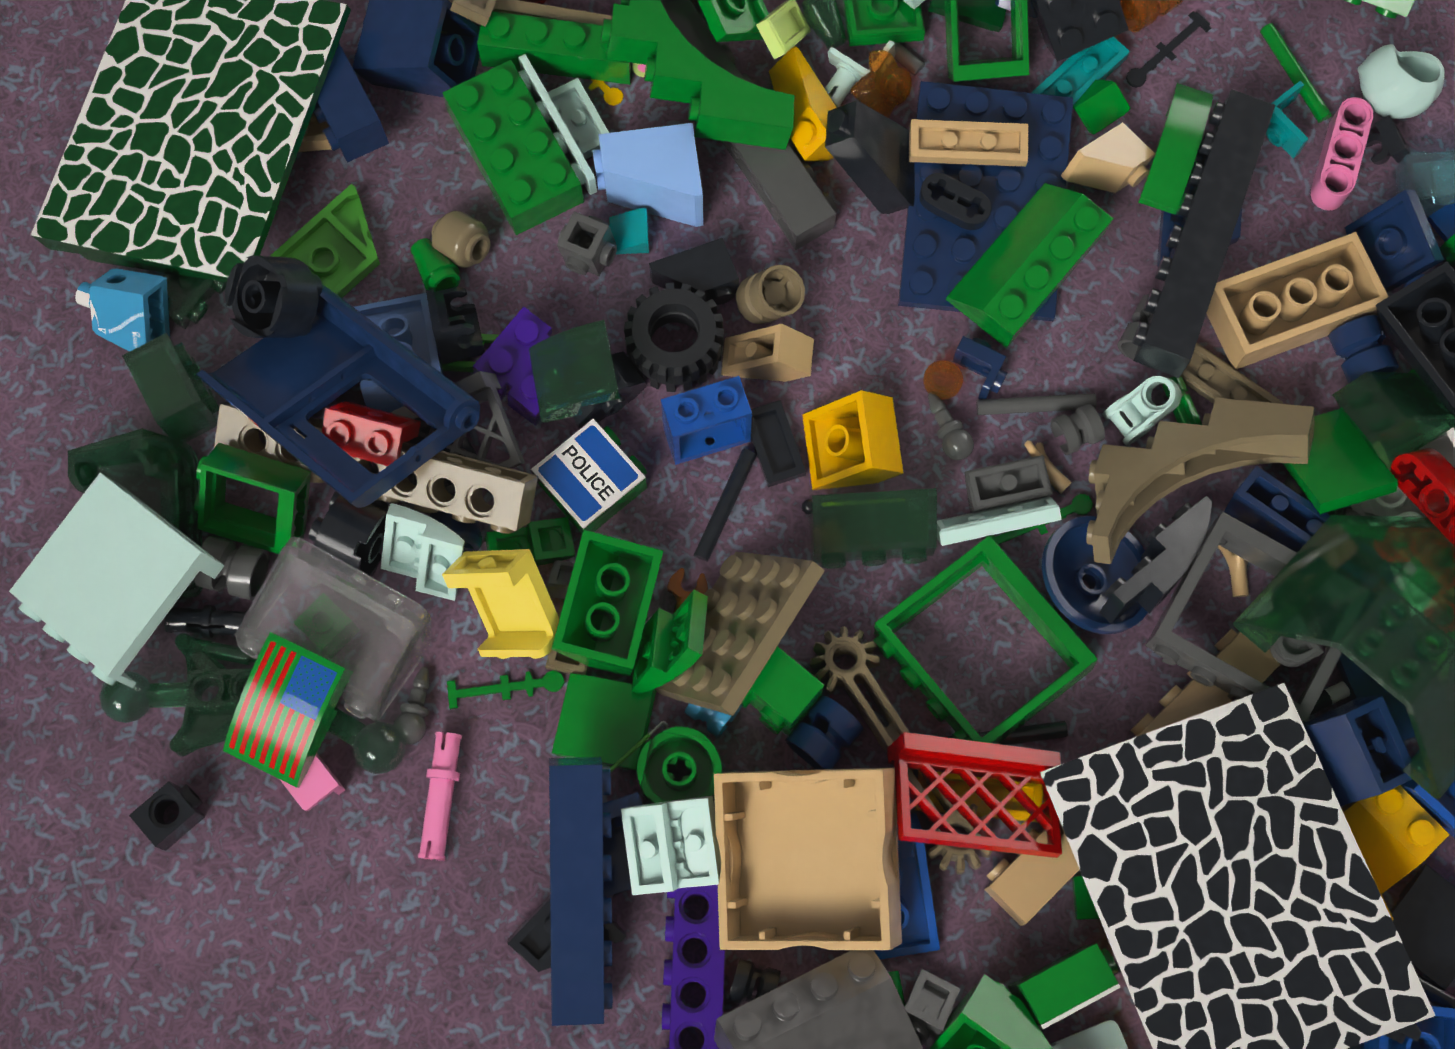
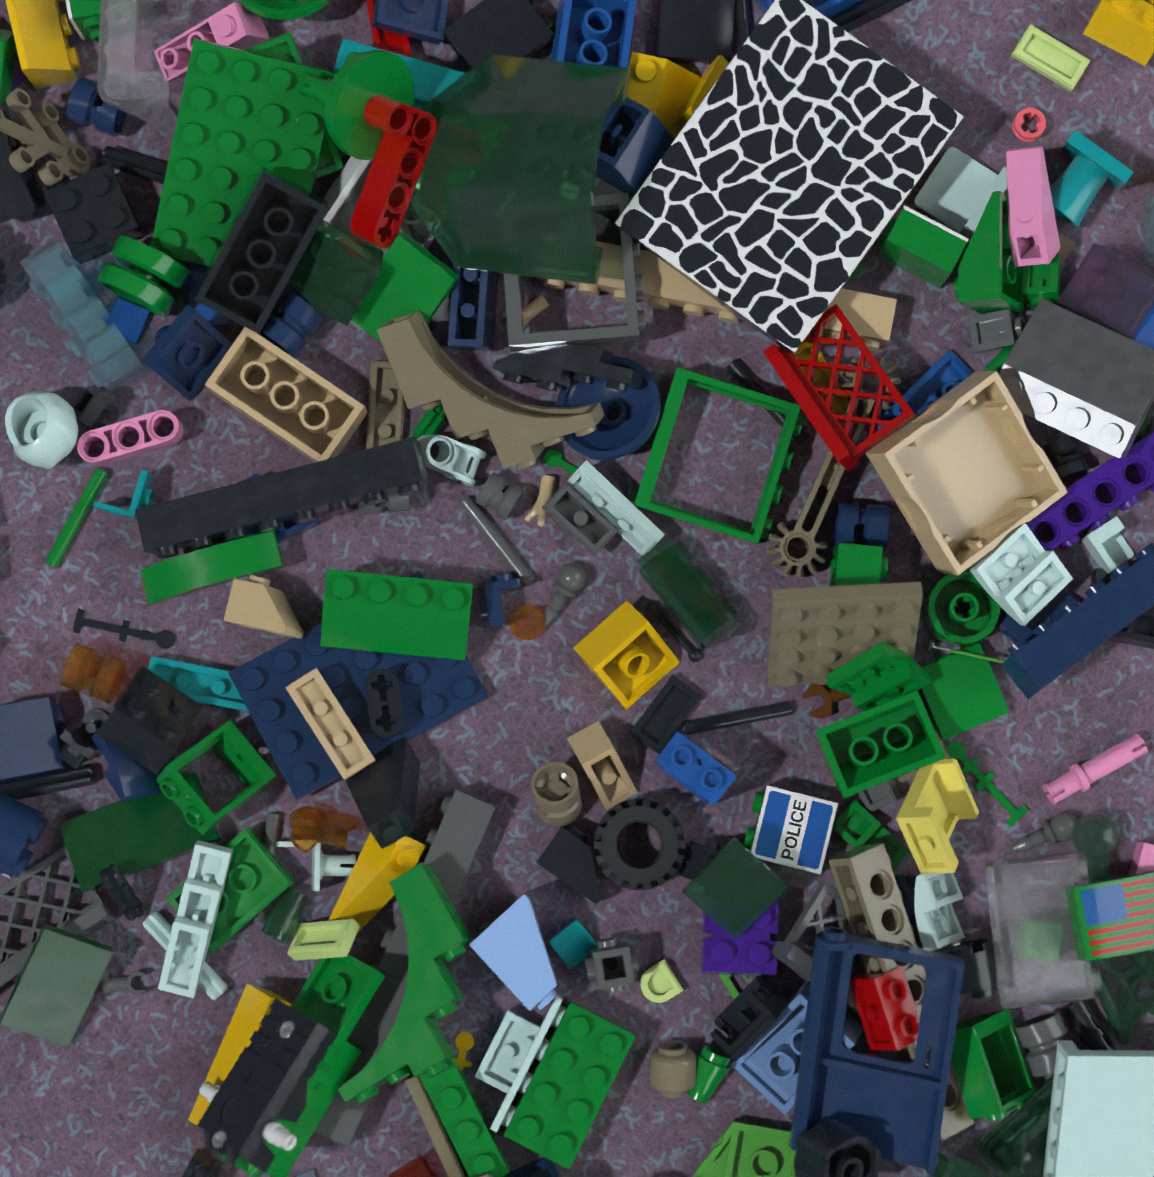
camera: 125 degrees left, 10 degrees up
(541, 282) = (660, 983): none -> yellowish green tile
(638, 965) = (1108, 545): none -> light aqua panel
(1101, 105) = (215, 649): green slope -> none

